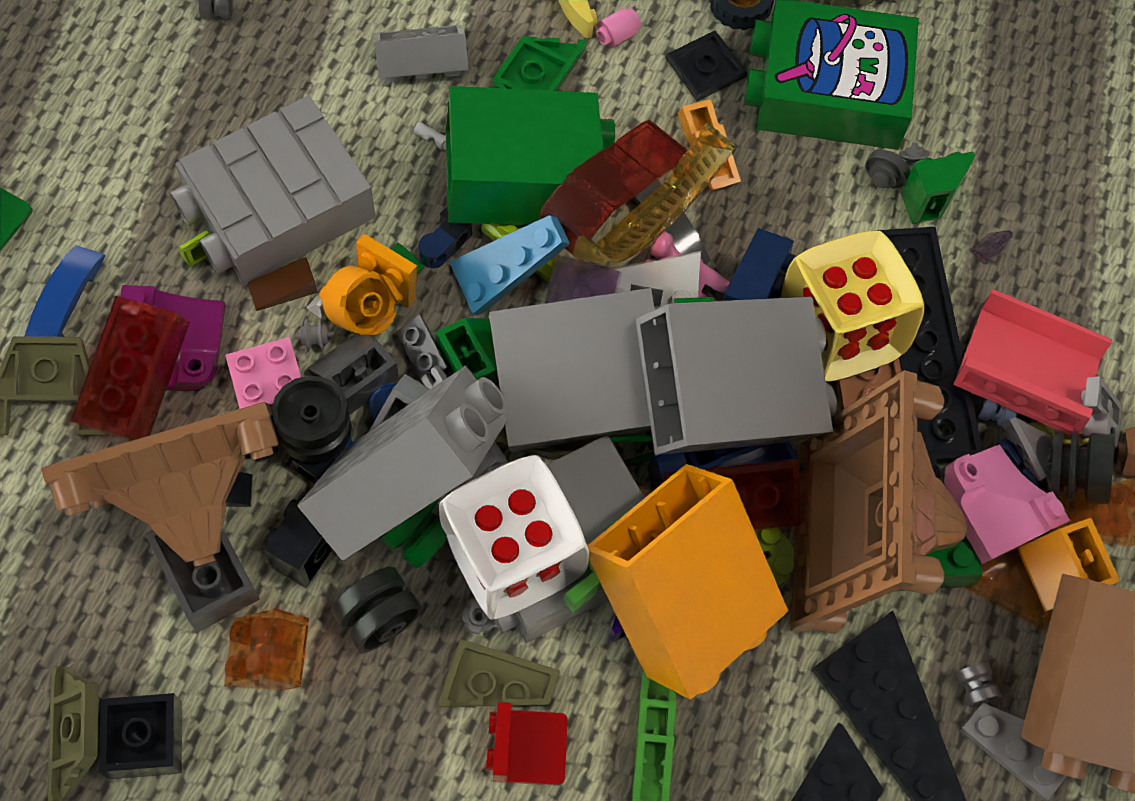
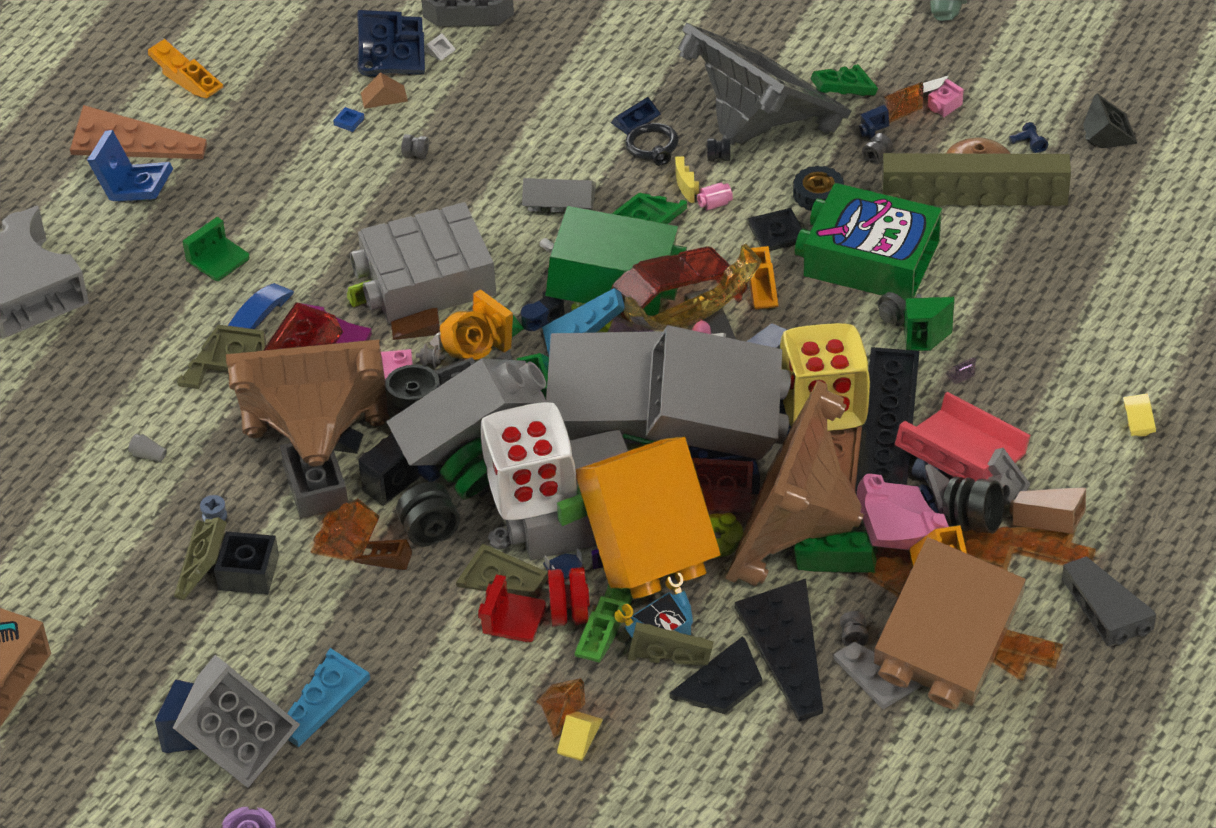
camera: 20 degrees right, 20 degrees down
(77, 652) = (213, 507): none -> sand blue wheel
(355, 673) = (398, 559): none -> reddish brown slope
(577, 654) = (565, 563): none -> dark blue piece
(607, 713) = (569, 596): none -> red wheel
(733, 723) = (667, 612): none -> torso
(736, 771) = (665, 644): none -> olive wing

